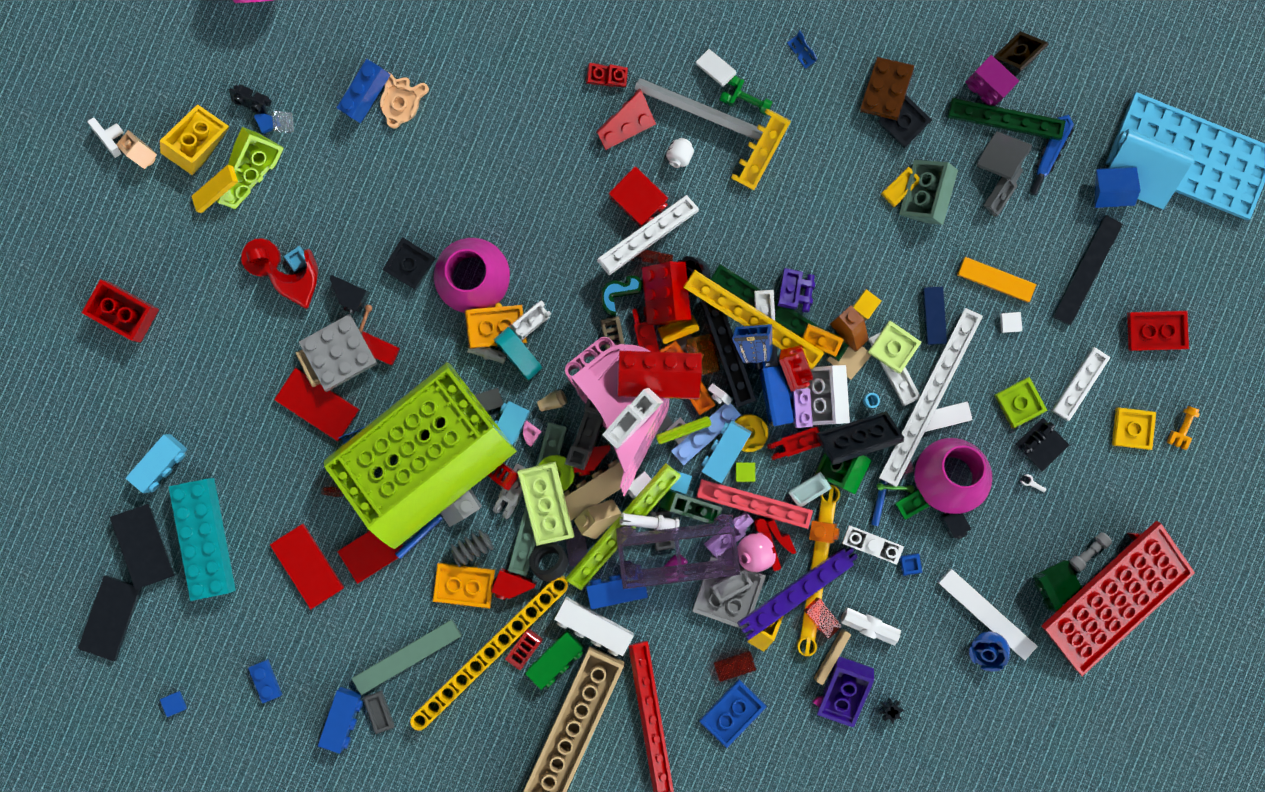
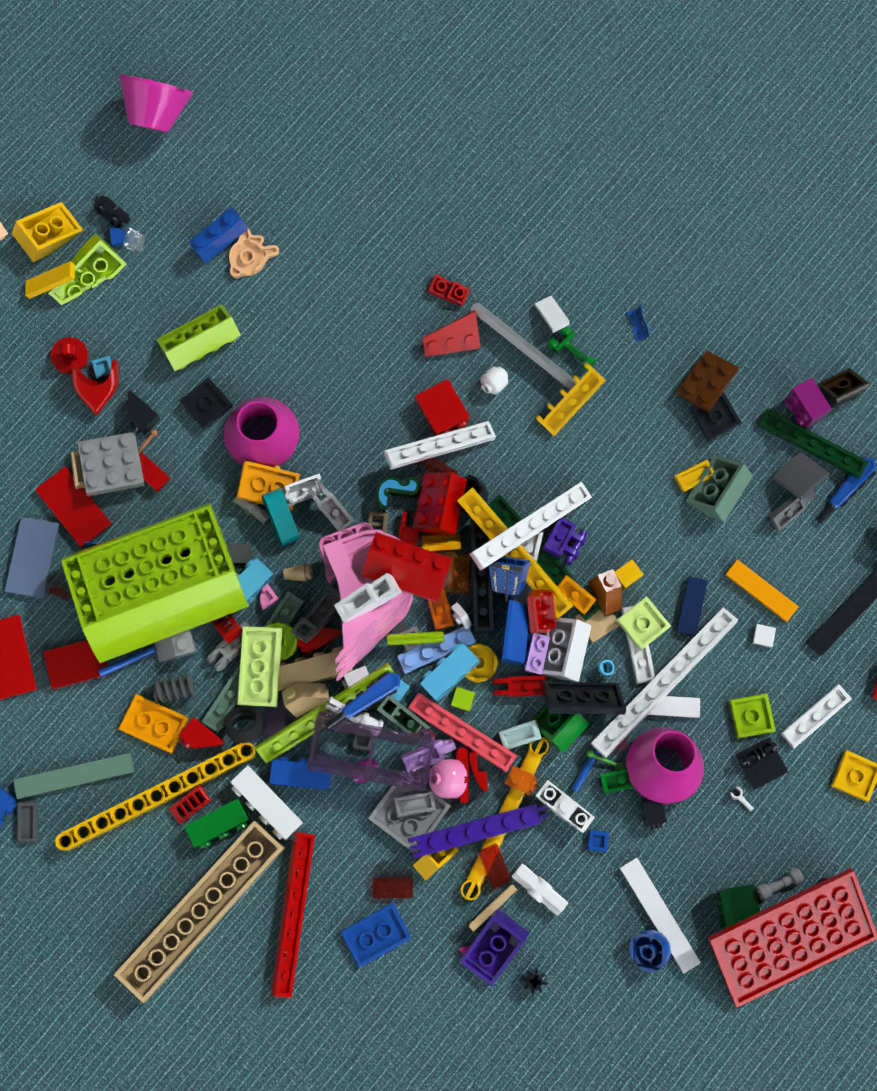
camera: 15 degrees right, 10 degrees down
(295, 465) = (32, 557): none -> sand blue tile
(379, 200) = (198, 337): none -> lime slope
(564, 329) = (332, 508): none -> light grey hinge
(663, 496) = (375, 693): none -> blue sword
(761, 289) = (530, 526): none -> white tile

